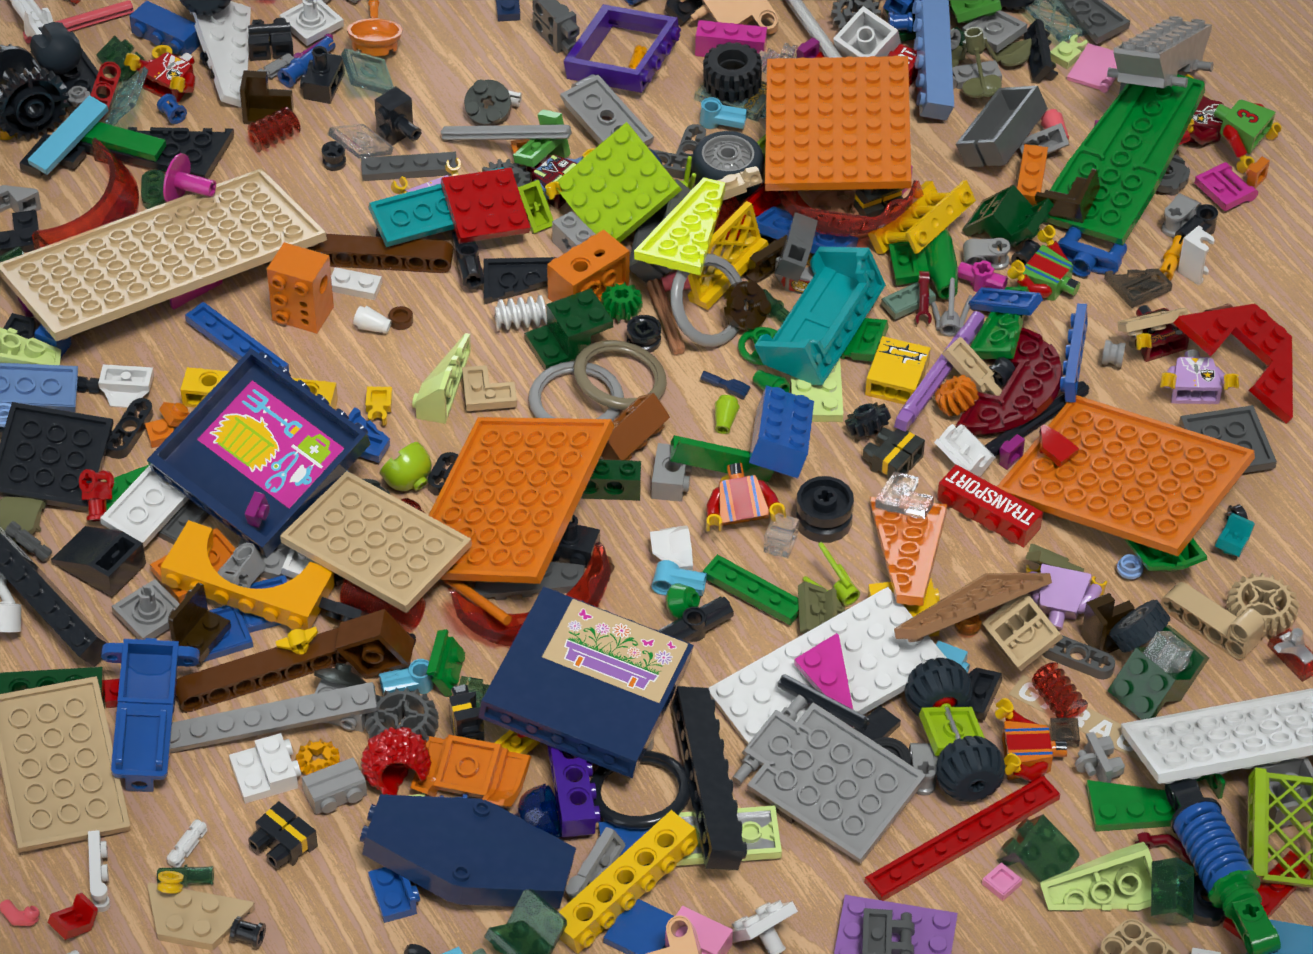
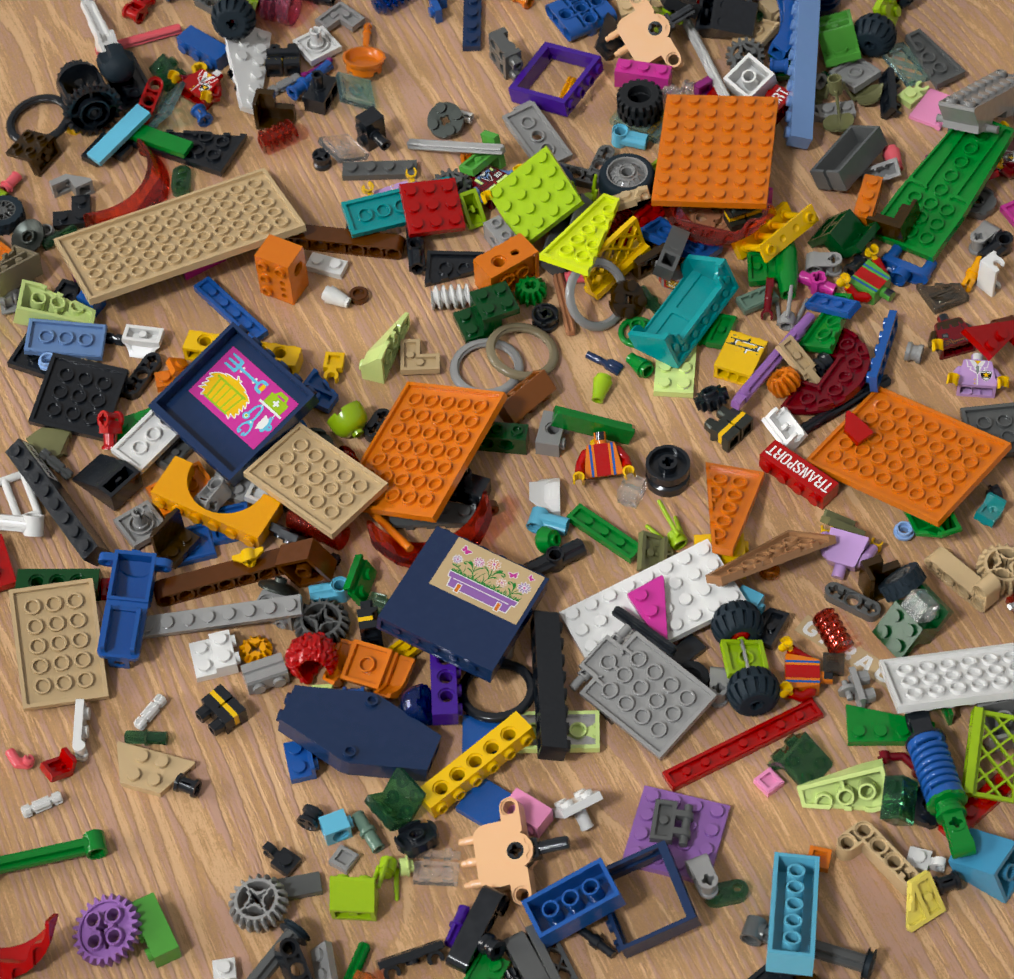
camera: 10 degrees right, 5 degrees up
(77, 95) = (129, 102): light grey plate -> none
(170, 882) = (133, 742): yellow bush -> none
(179, 180) = (200, 174): dark pink piece -> none
(257, 509) = (226, 450): magenta plate -> none
(604, 853) = (462, 741): light grey hinge -> none
(781, 431) = (640, 406): blue brick -> none
(900, 497) = (727, 464): clear plate -> none
(1011, 451) = (821, 430): magenta plate -> none
(1022, 630) = (808, 580): tan bracket -> none
(1156, 321) = (947, 328): tan hinge -> none

